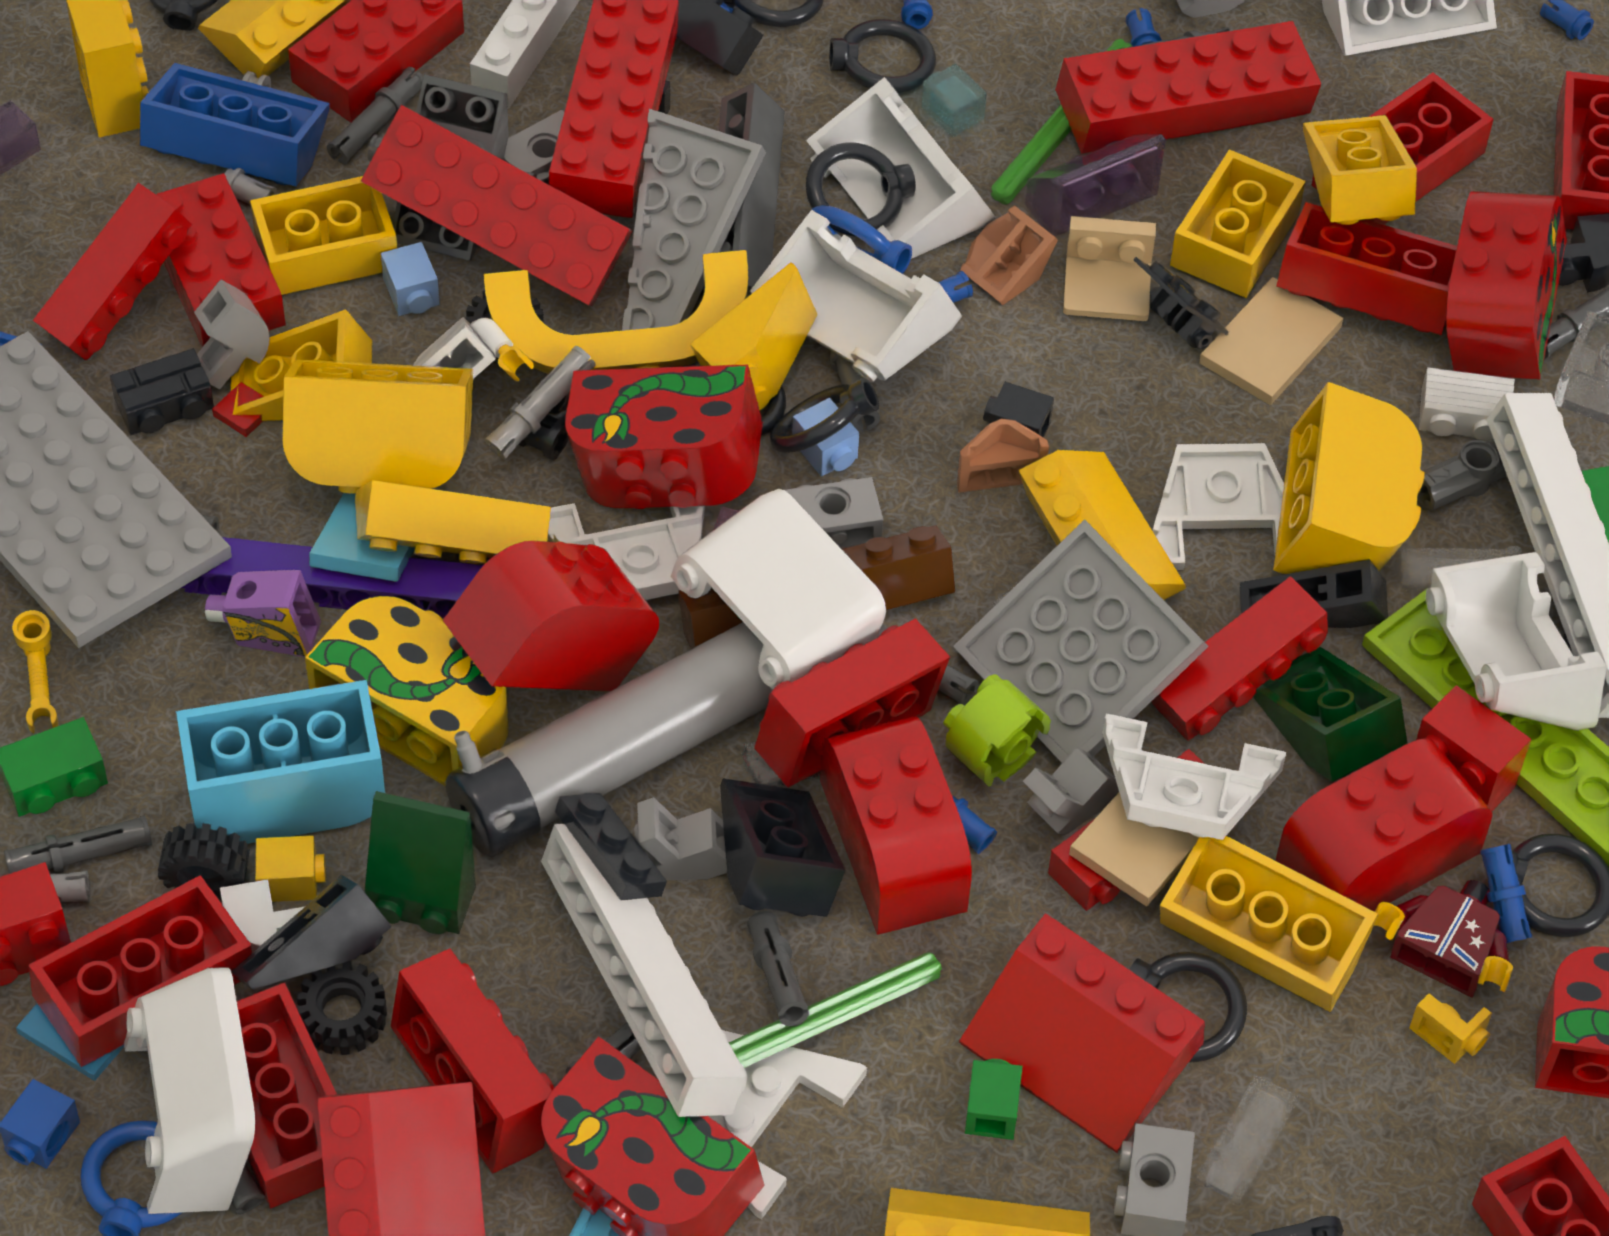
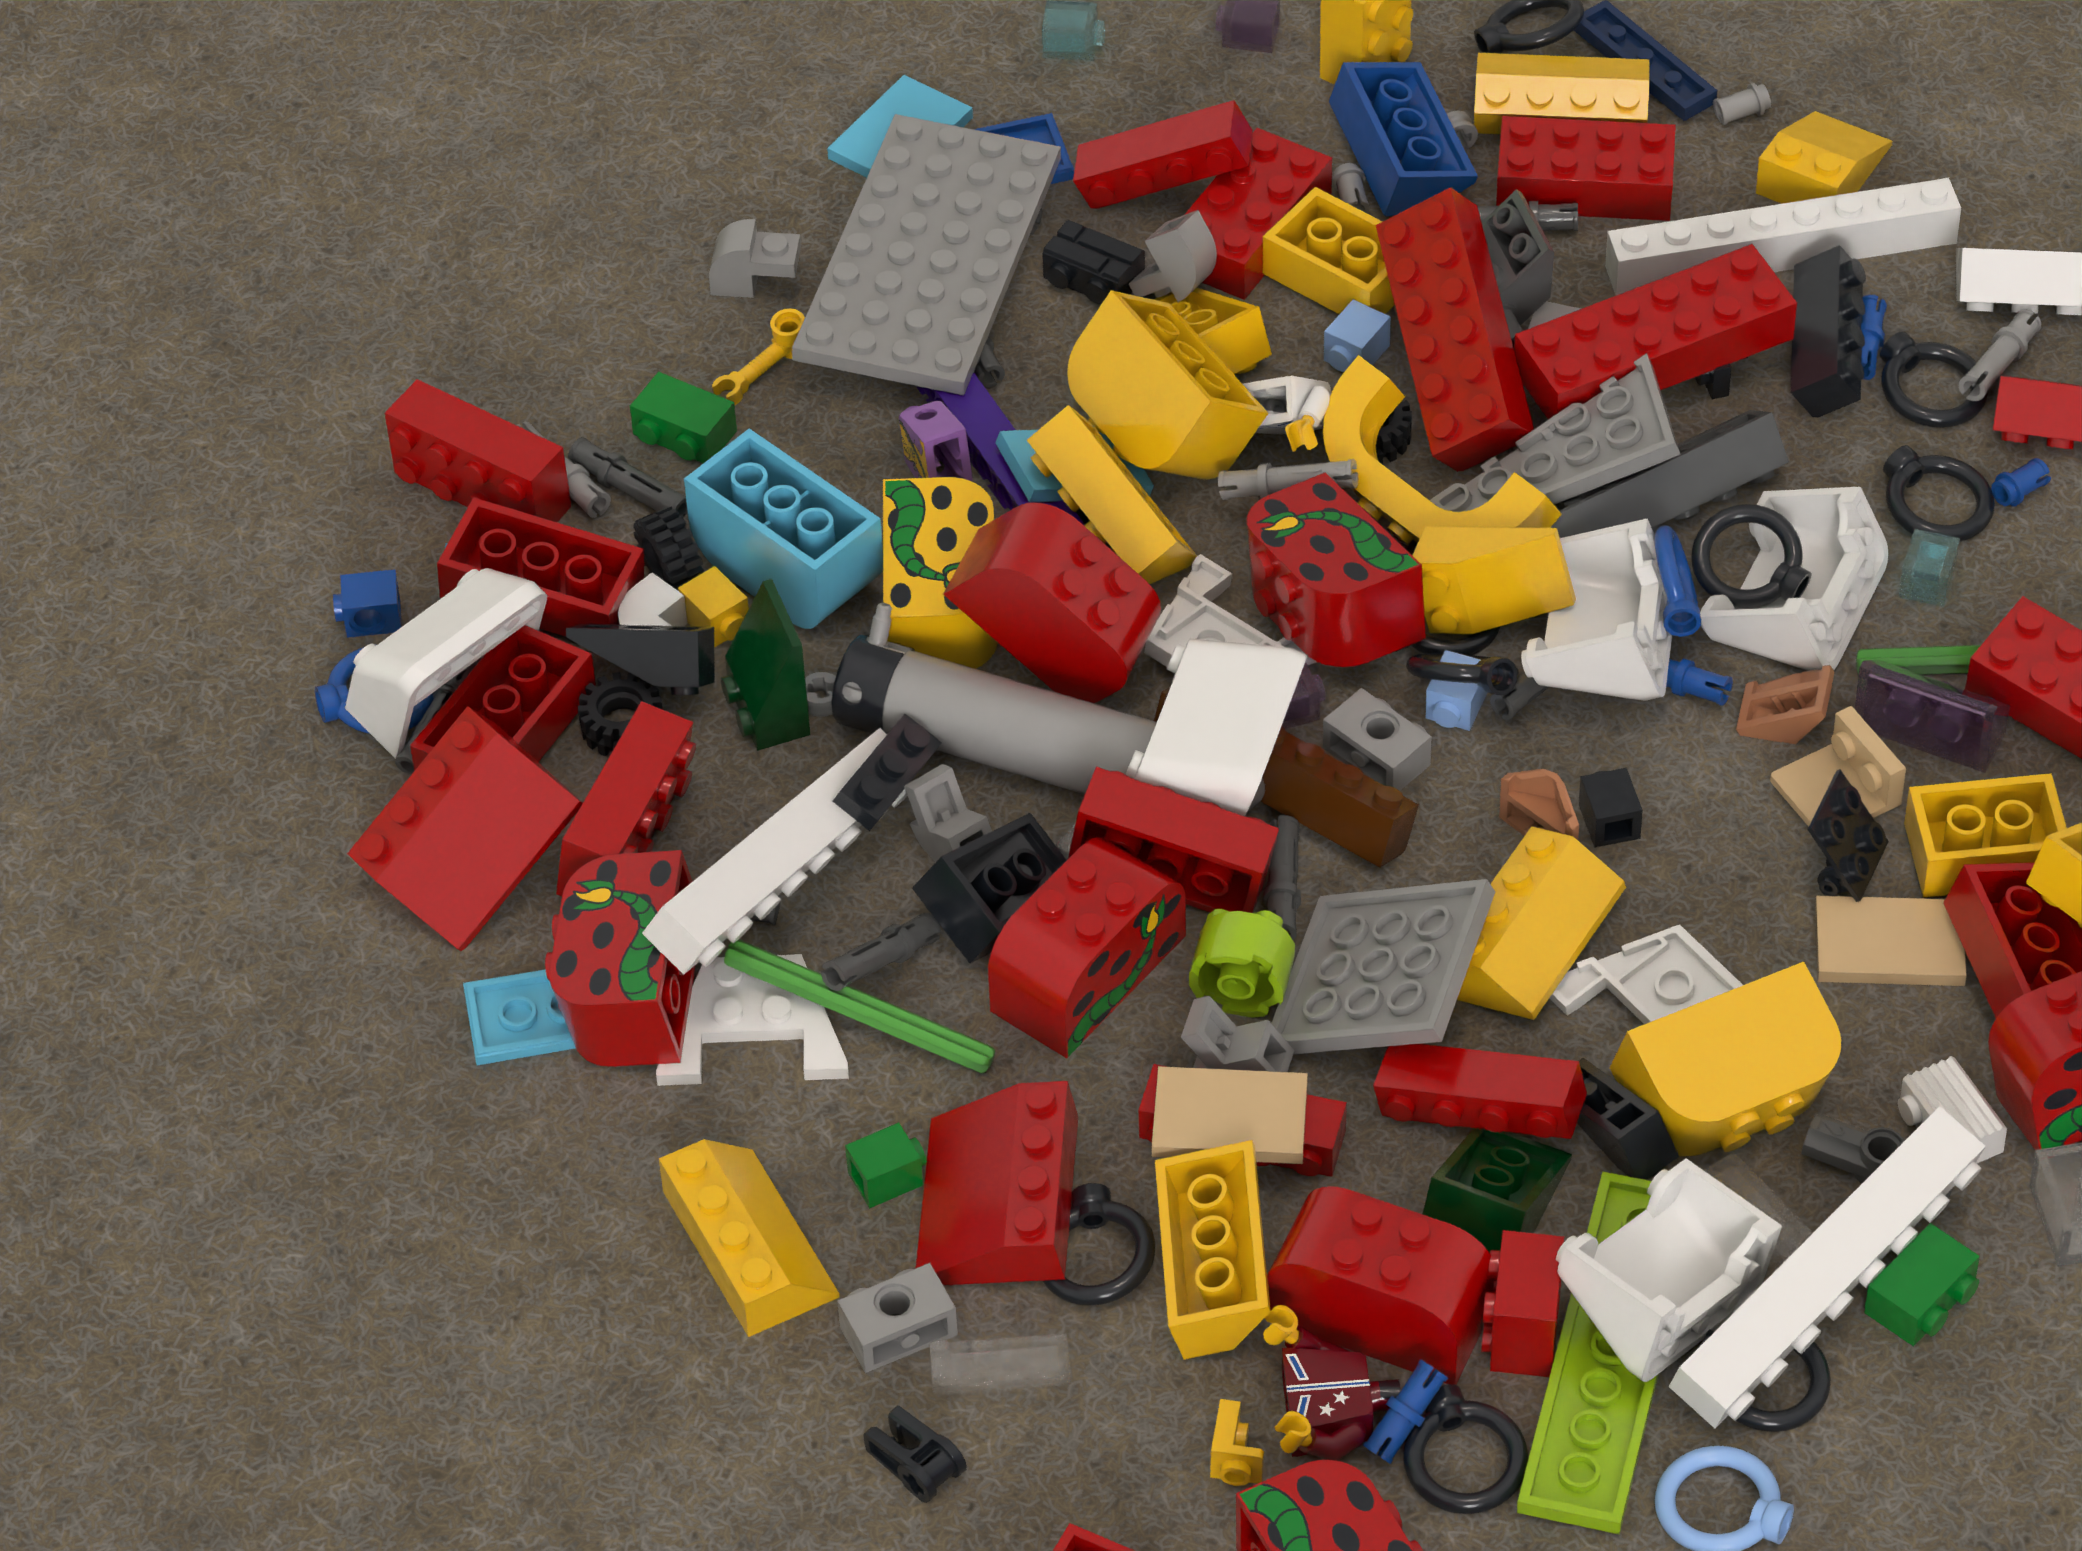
camera: 60 degrees right, 5 degrees down
(977, 831) = (1147, 995): blue pin -> none
(1185, 792) = (1270, 1110): white wing -> none

